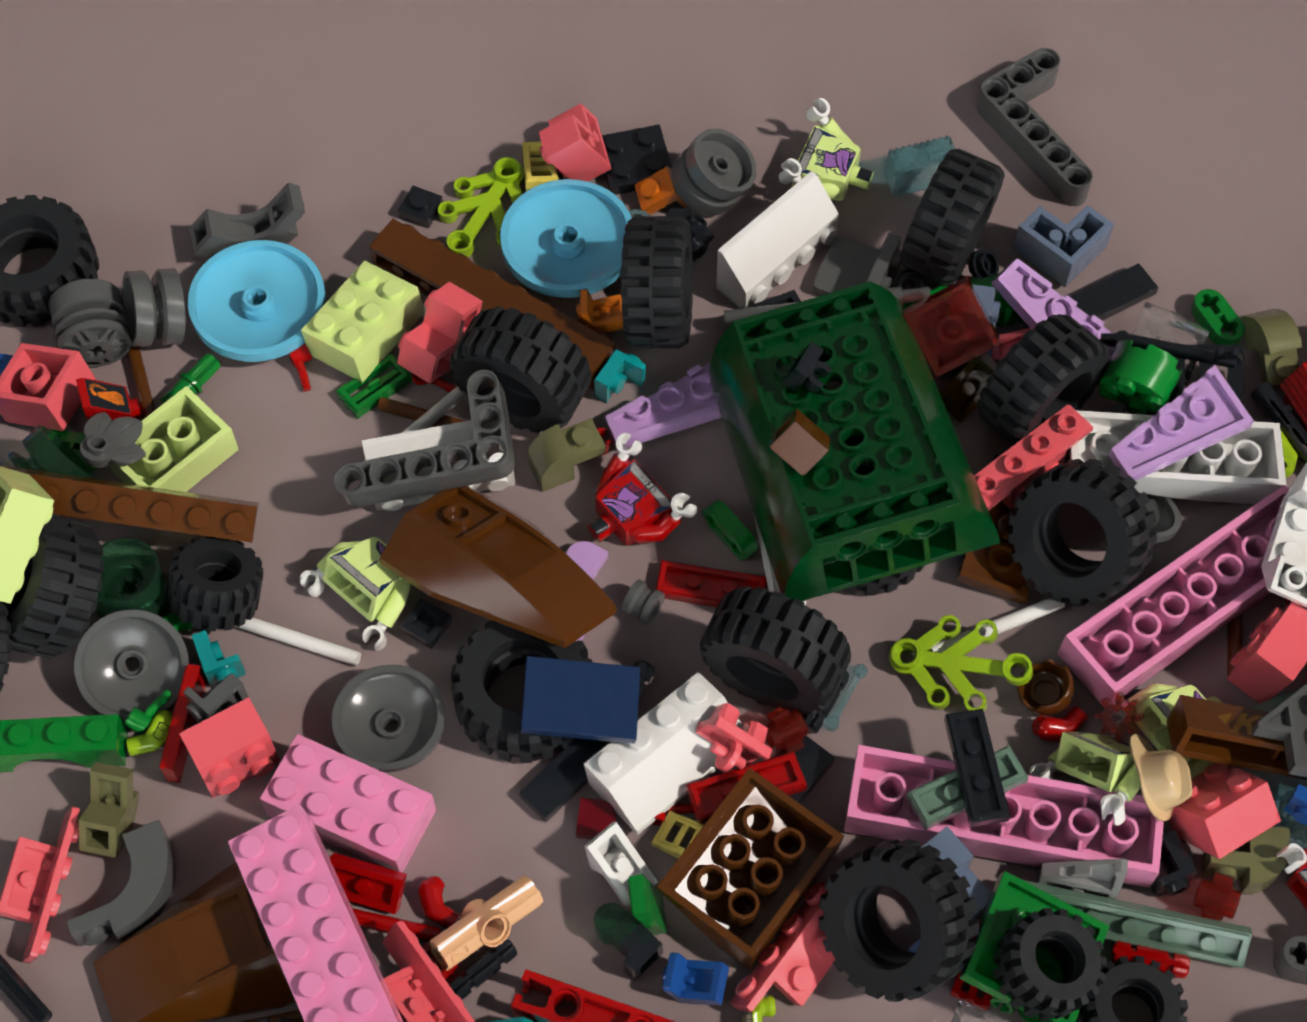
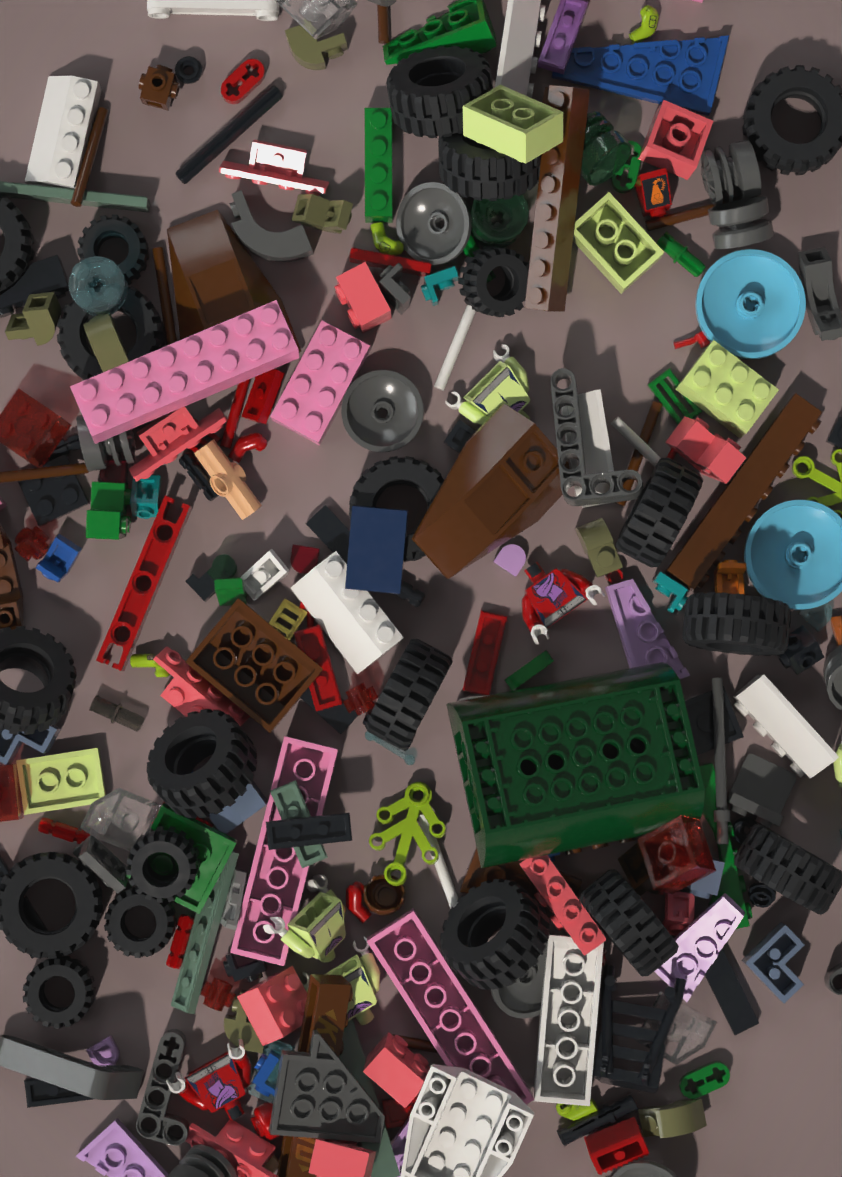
camera: 90 degrees right, 25 degrees up
(111, 441) = (616, 201): dark grey plate -> none
(139, 720) = (393, 232): green hand -> none
(643, 602) = (471, 601): dark grey wheel -> none
(695, 980) = (180, 622): blue bracket -> none
(730, 743) = (338, 656): coral hips -> none
(800, 442) = (549, 719): reddish brown panel -> none
(804, 369) = (618, 728): black tile -> none
(1125, 724) = (352, 943): clear red gear -> none
(1139, 377) = (629, 1000): green brick -> none
(1162, 777) = (296, 962): tan piece -> none
(1192, 422) = (582, 1030): lavender wing -> none

